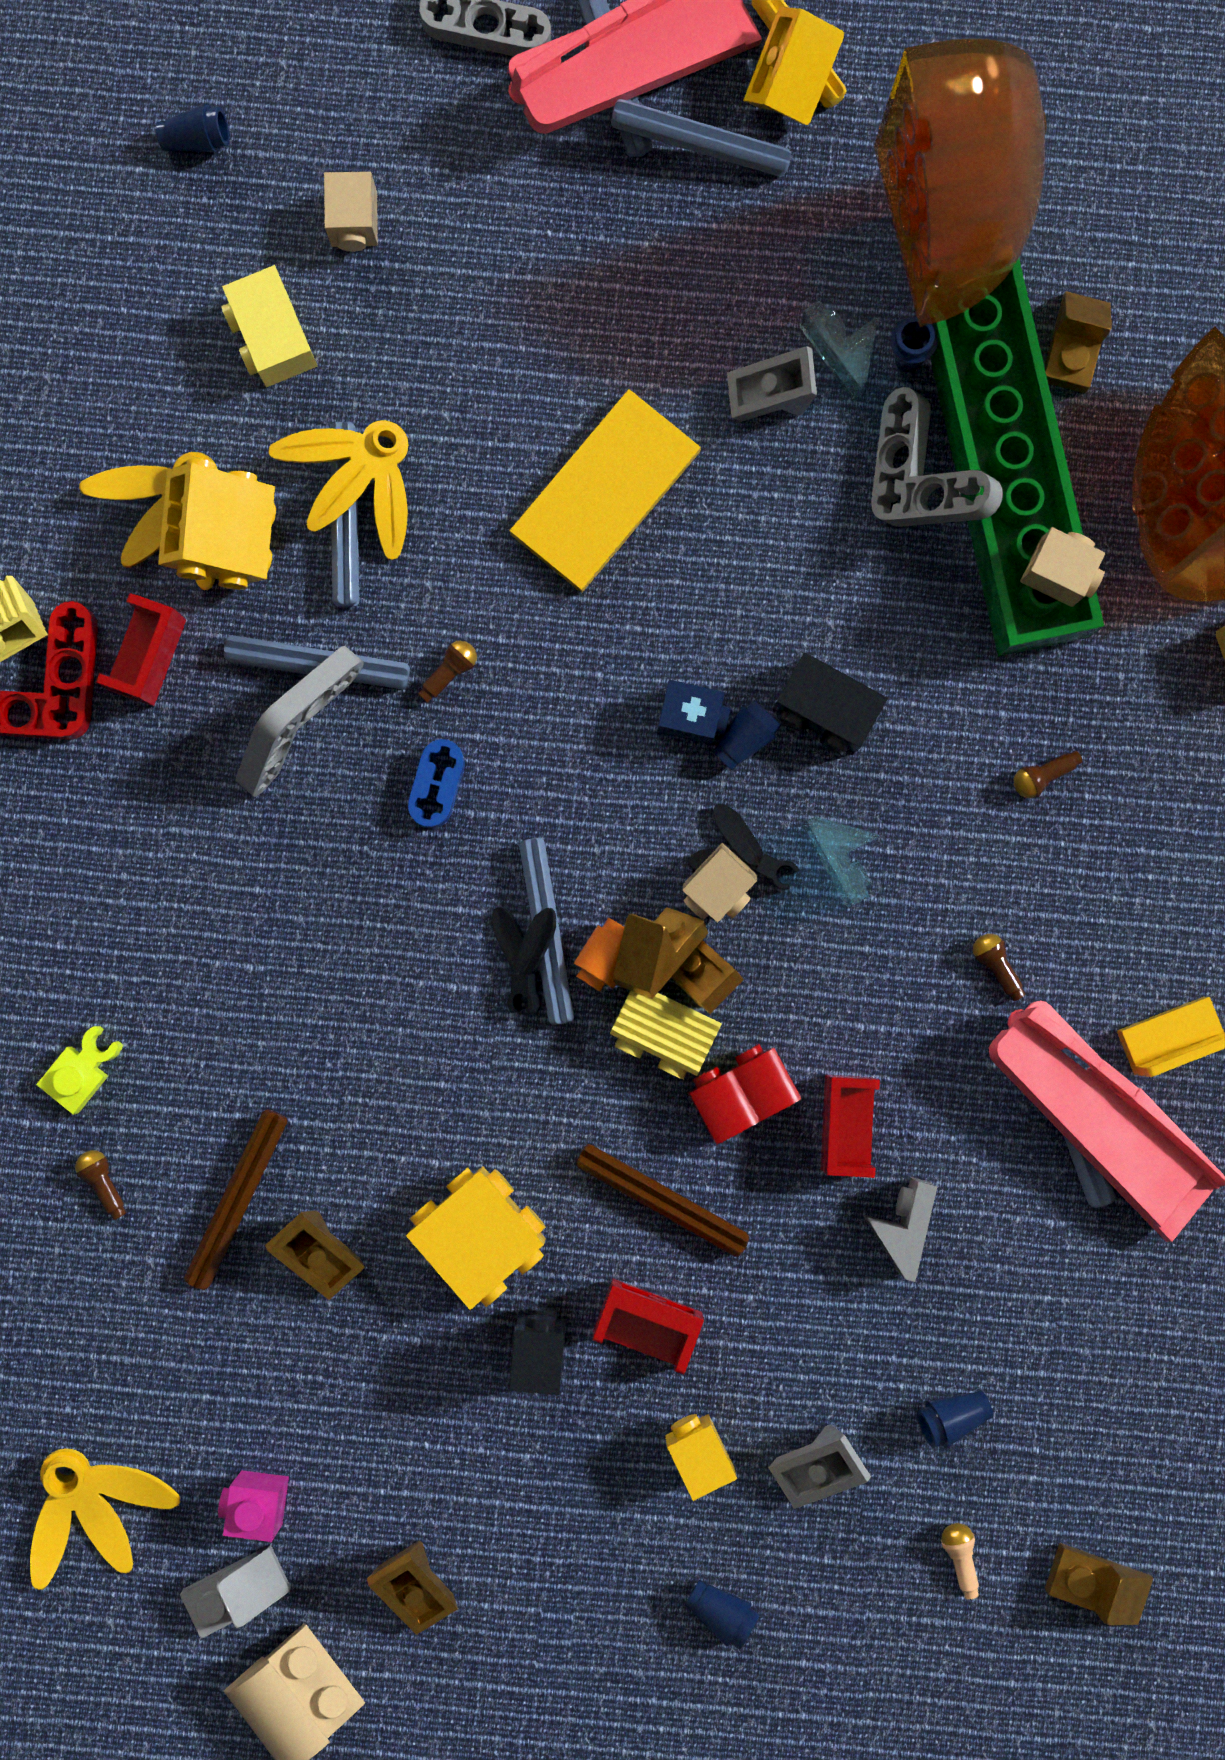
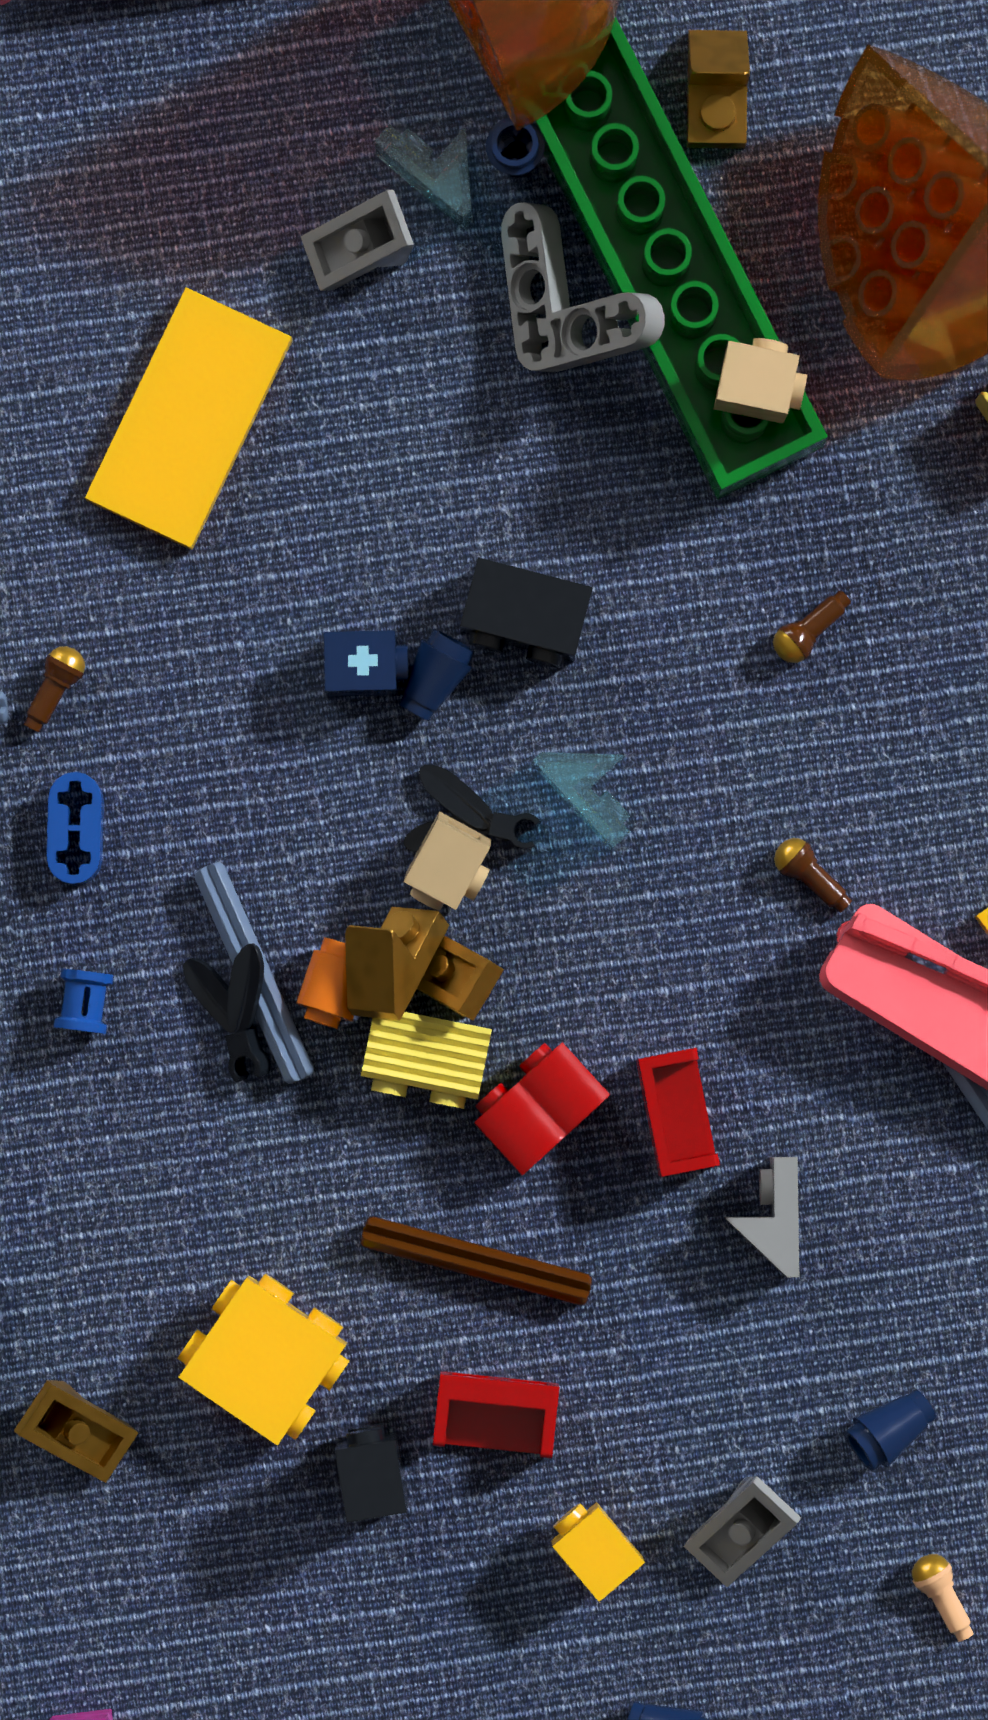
camera: 15 degrees left, 0 degrees up
(411, 934) = (75, 984): none -> blue bush

